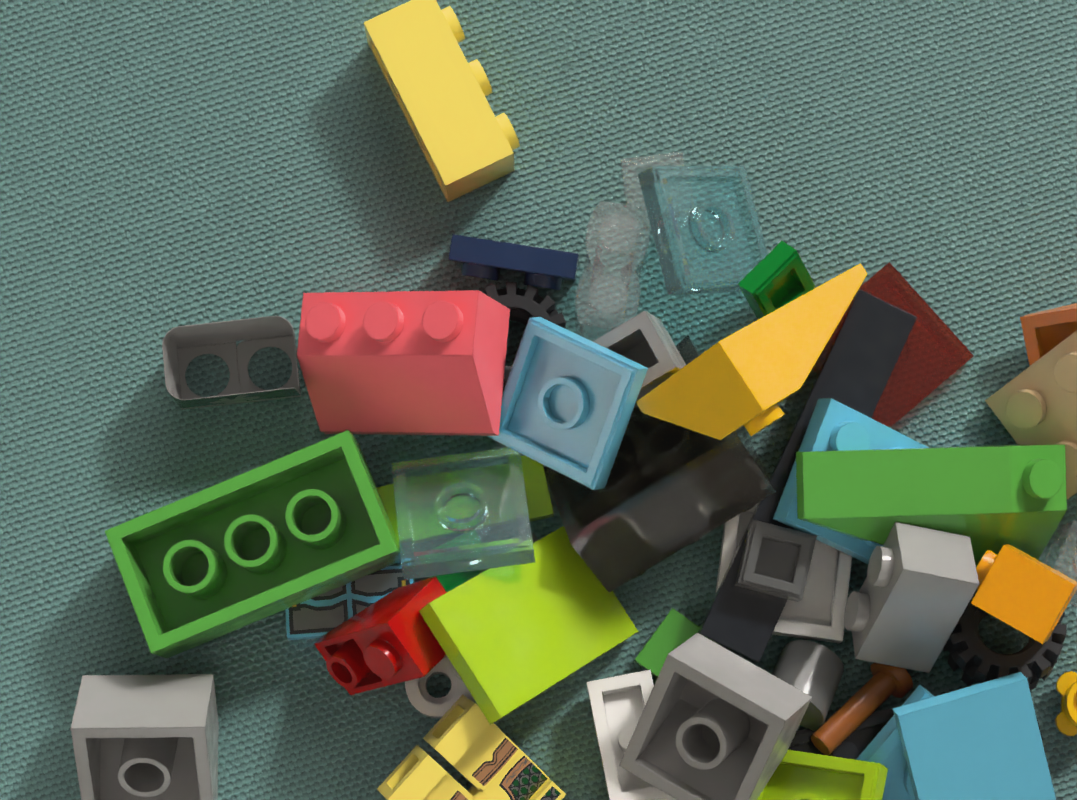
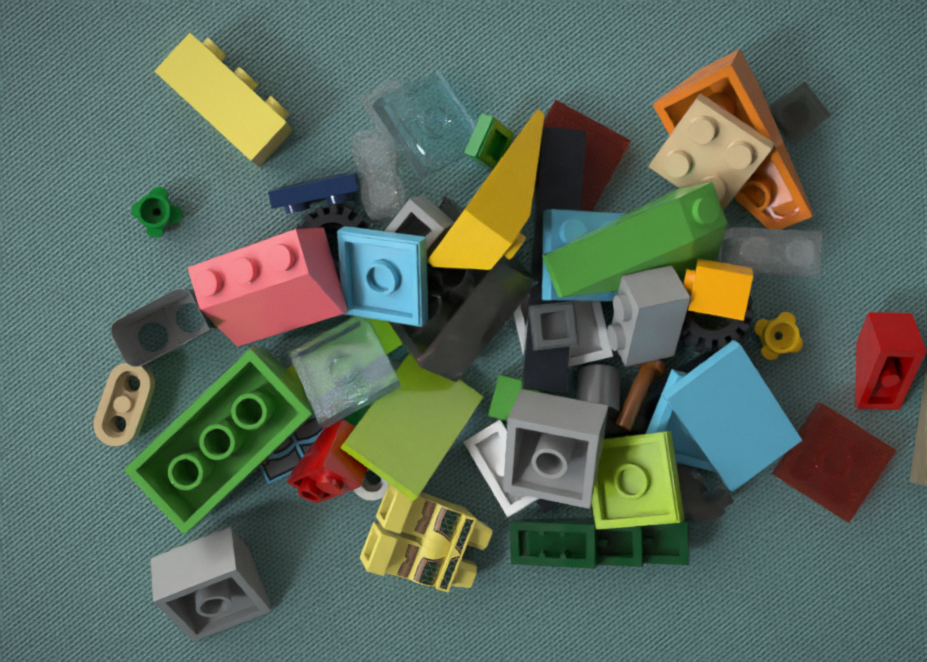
camera: 15 degrees left, 10 degrees up
(128, 445) = (122, 401): none -> tan plate
(285, 191) = (145, 207): none -> green plate

